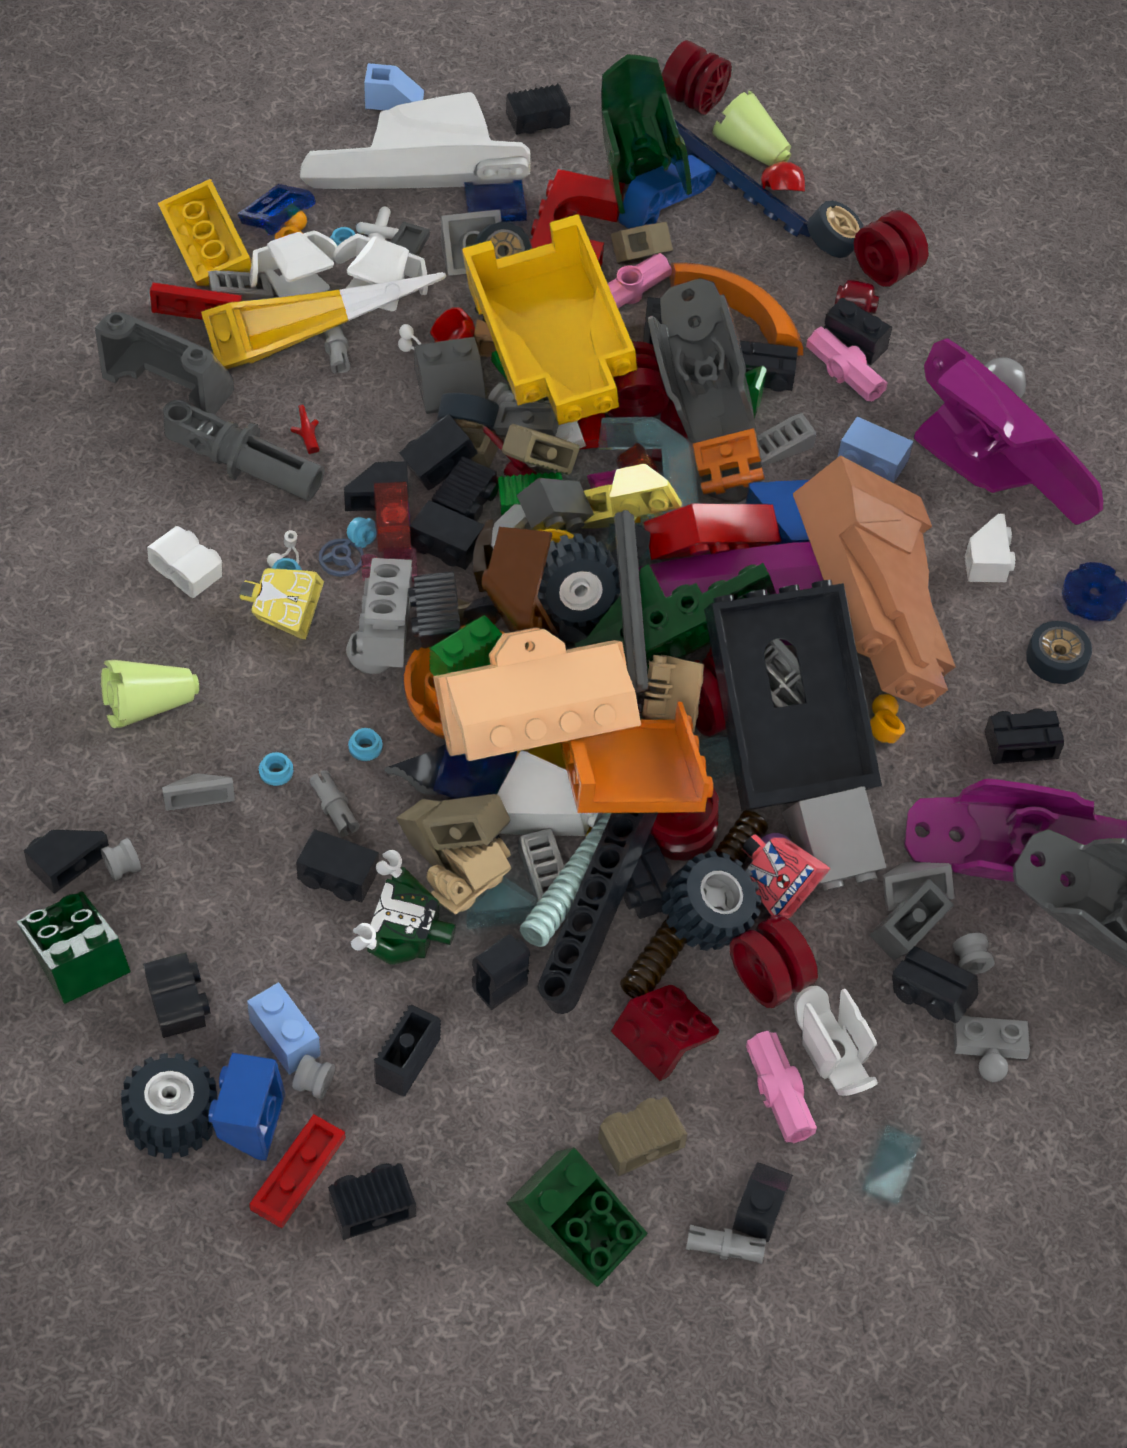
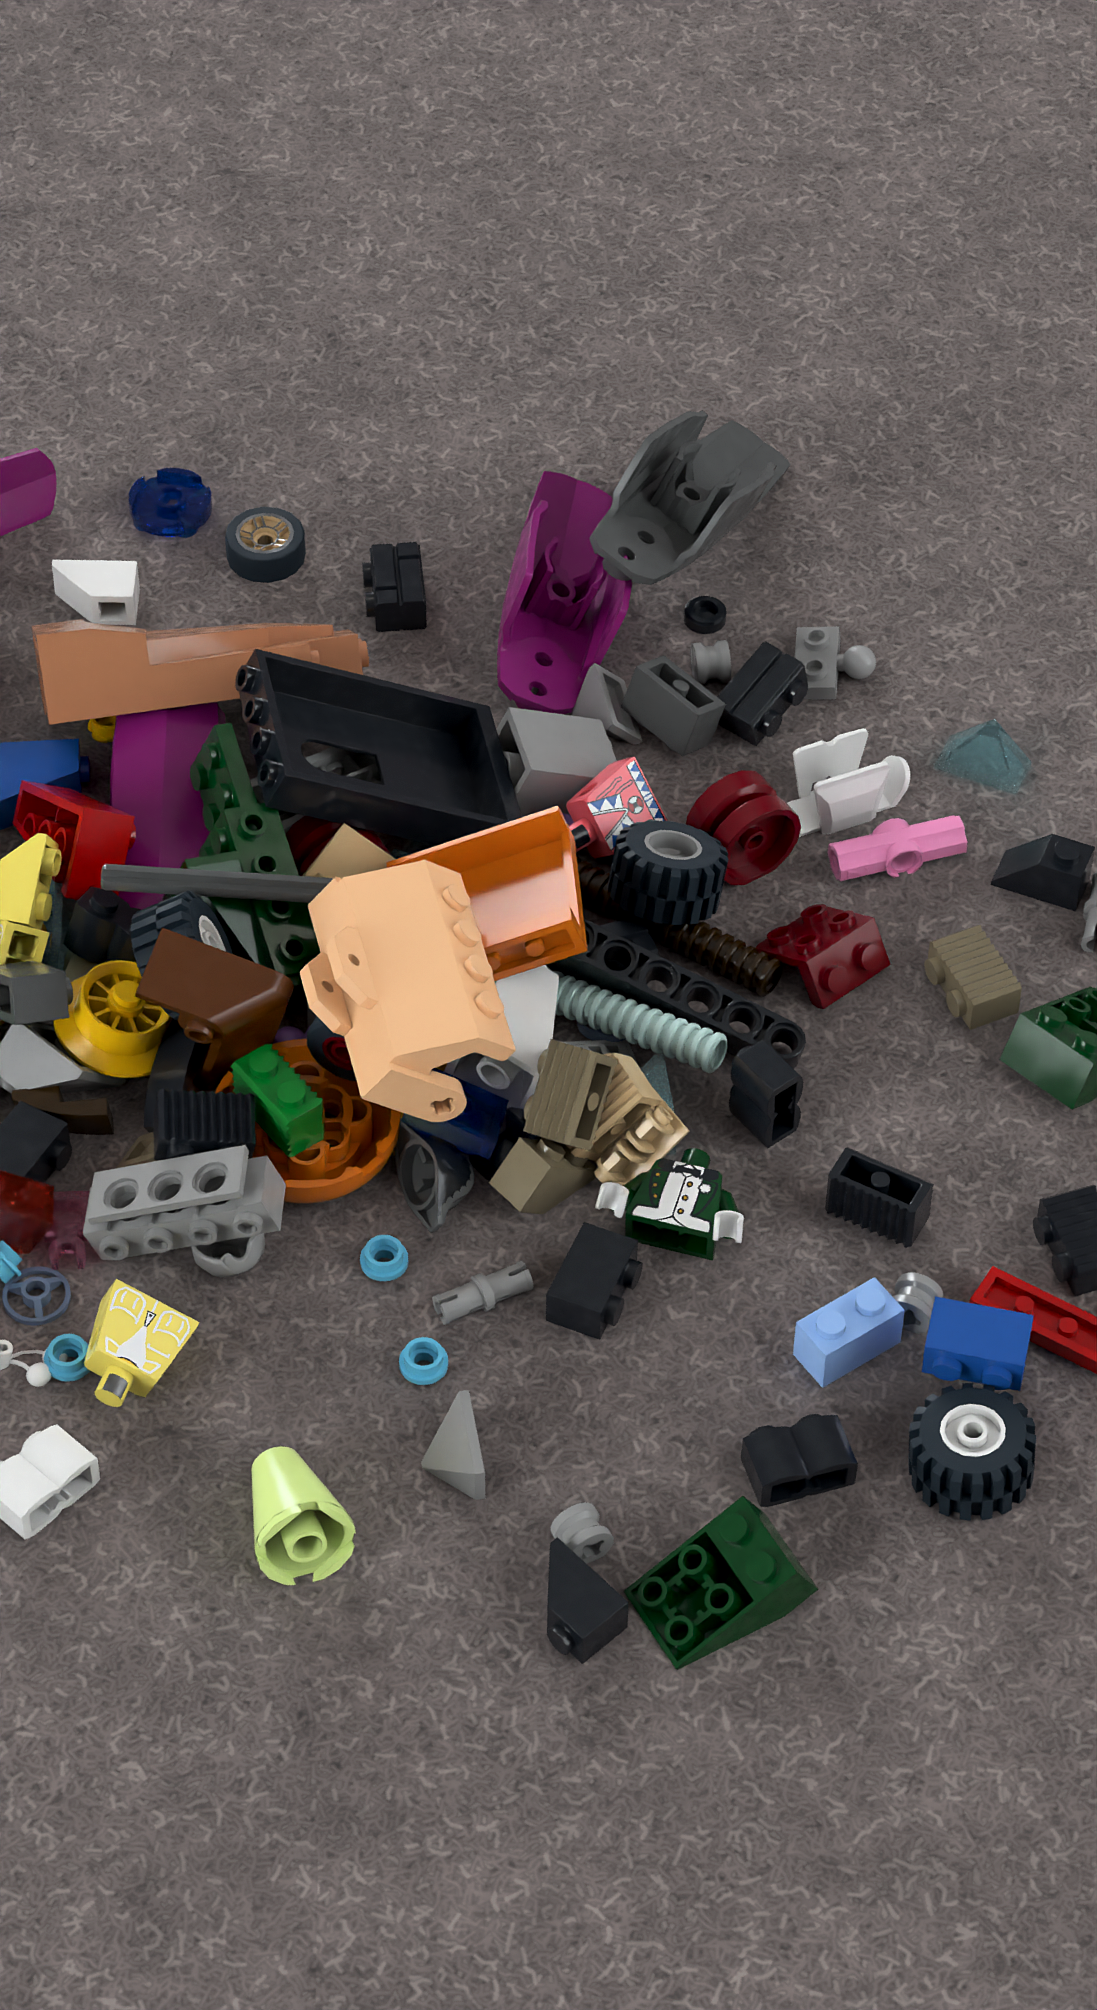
camera: 85 degrees left, 5 degrees down
(1036, 956) = (705, 615): none -> black tile

